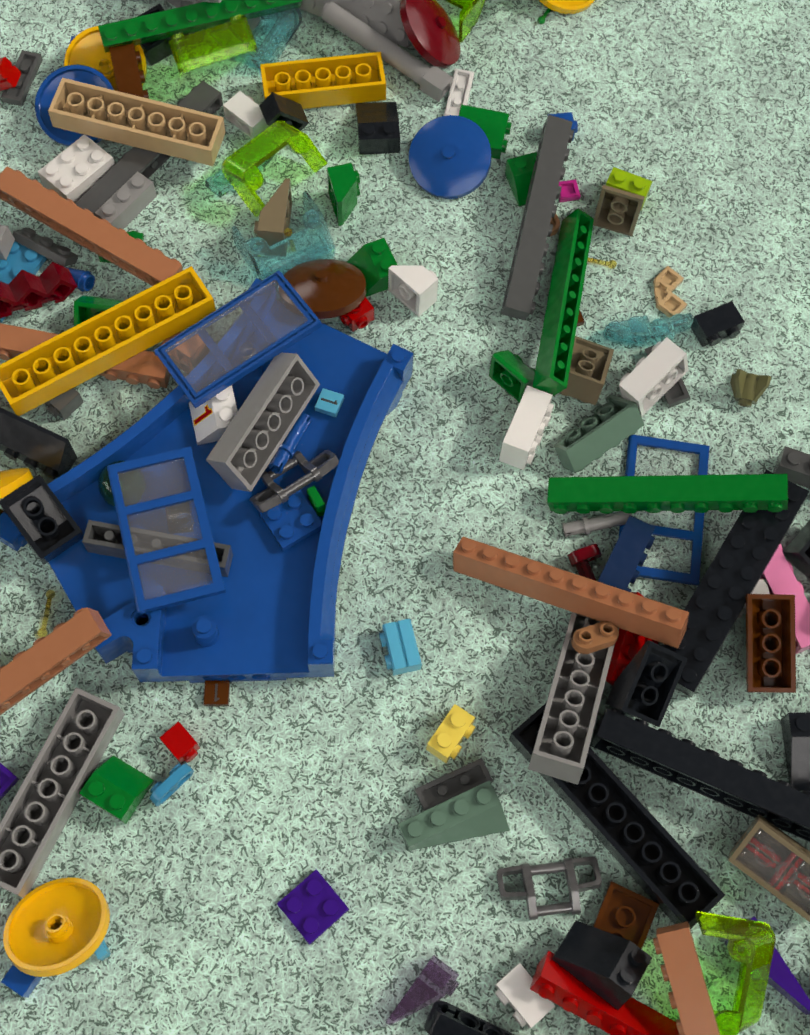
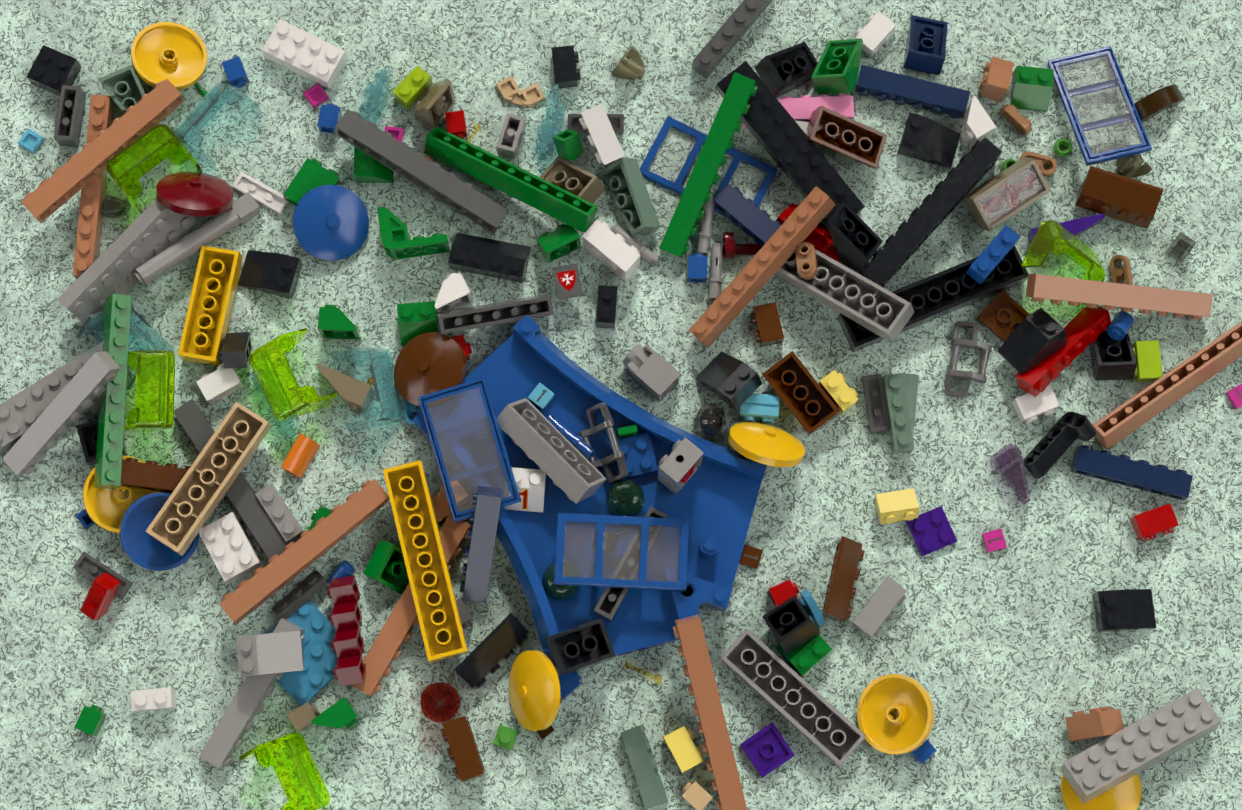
camera: 70 degrees left, 10 degrees up
(138, 385) = (482, 543): none -> brick
(138, 760) = (791, 625): none -> black brick
(193, 204) = (300, 456): none -> orange brick
(193, 867) = (879, 608): none -> light grey brick
(214, 808) = (842, 579): none -> reddish brown slope
(237, 523) = (625, 498): none -> clear green cylinder
(284, 556) = (679, 465): none -> light grey brick
(325, 994) = (994, 540): none -> dark pink tile
(329, 850) = (897, 506): none -> light yellow brick
(351, 661) = (766, 444): none -> yellow dish
(364, 596) = (710, 421): none -> clear smoke cylinder
(400, 513) = (651, 371): none -> light grey piece
(407, 330) = (493, 314): none -> dark grey brick
(419, 601) = (730, 379): none -> black slope
(432, 689) = (801, 393): none -> reddish brown slope
(454, 223) = (398, 243): none -> green bracket
(460, 445) = (606, 306): none -> black brick
(471, 398) = (568, 284): none -> piece
(472, 314) = (489, 257): none -> black slope
(505, 626) = (767, 324): none -> reddish brown brick
(515, 23) = (190, 128): none -> clear light blue windscreen
(541, 462) = (645, 253): none -> light grey pin
(542, 528) = (697, 268): none -> blue brick
(550, 550) = (715, 272): none -> light grey pin
(573, 36) = (235, 72): none -> blue brick
(581, 111) = (316, 95): none -> dark pink tile
(601, 161) = (376, 95): none -> clear light blue slope
(605, 241) = (456, 123): none -> red brick
(615, 293) = (511, 135): none -> light grey brick
(619, 86) = (304, 54): none -> white brick
(629, 351) = (568, 145): none -> green brick
(696, 869) = (993, 254): none -> blue brick

